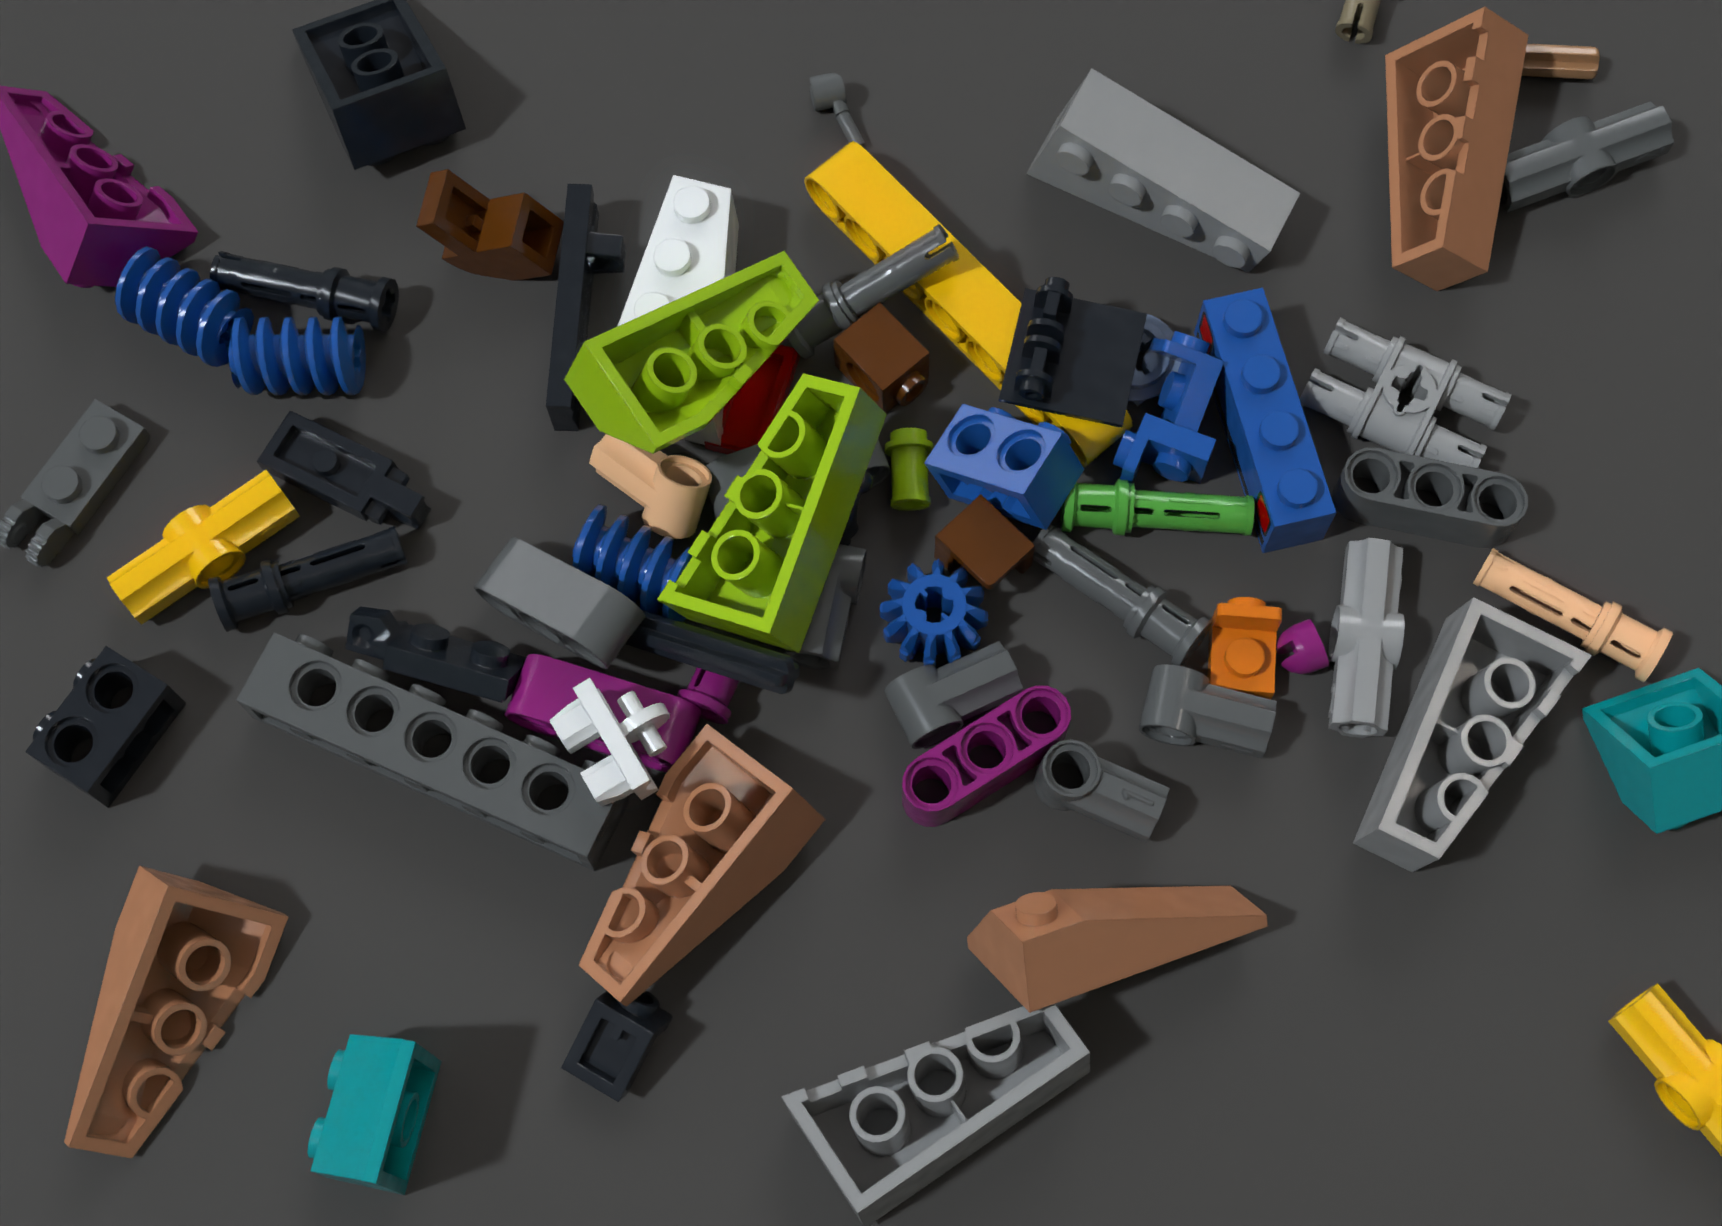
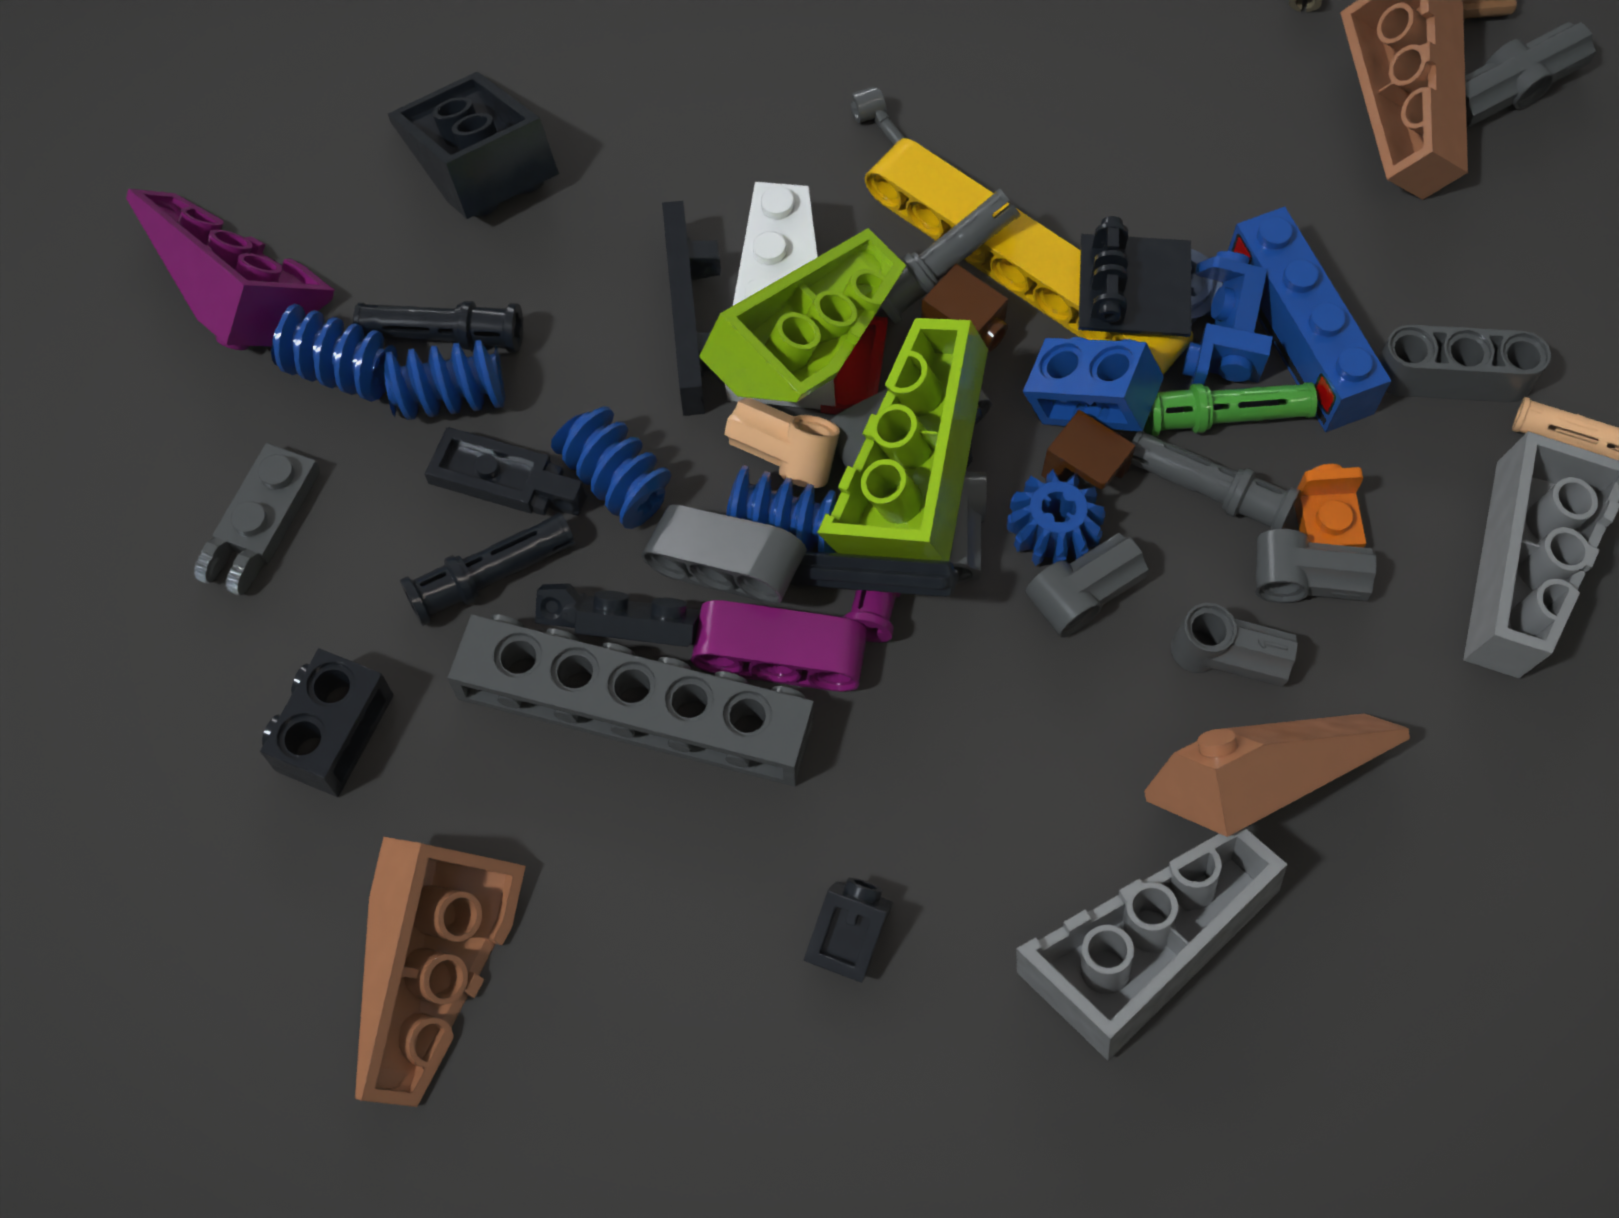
camera: 10 degrees left, 5 degrees down
(201, 546) = (388, 552): yellow piece -> none
(374, 1112) = (640, 1024): teal slope -> none
(460, 481) = (613, 465): none -> blue piece
(489, 237) = (599, 258): reddish brown brick -> none
(593, 718) = (816, 682): white hips -> none
(709, 850) = (900, 747): nougat wedge -> none
(909, 474) = (1007, 405): lime pin -> none
(998, 728) = (1138, 609): magenta beam -> none
(1162, 174) = (1172, 130): light grey wedge -> none
(1307, 648) = (1384, 501): magenta hinge -> none
(1366, 638) = (1435, 487): light grey piece -> none
(1394, 368) = (1407, 264): light grey pin -> none

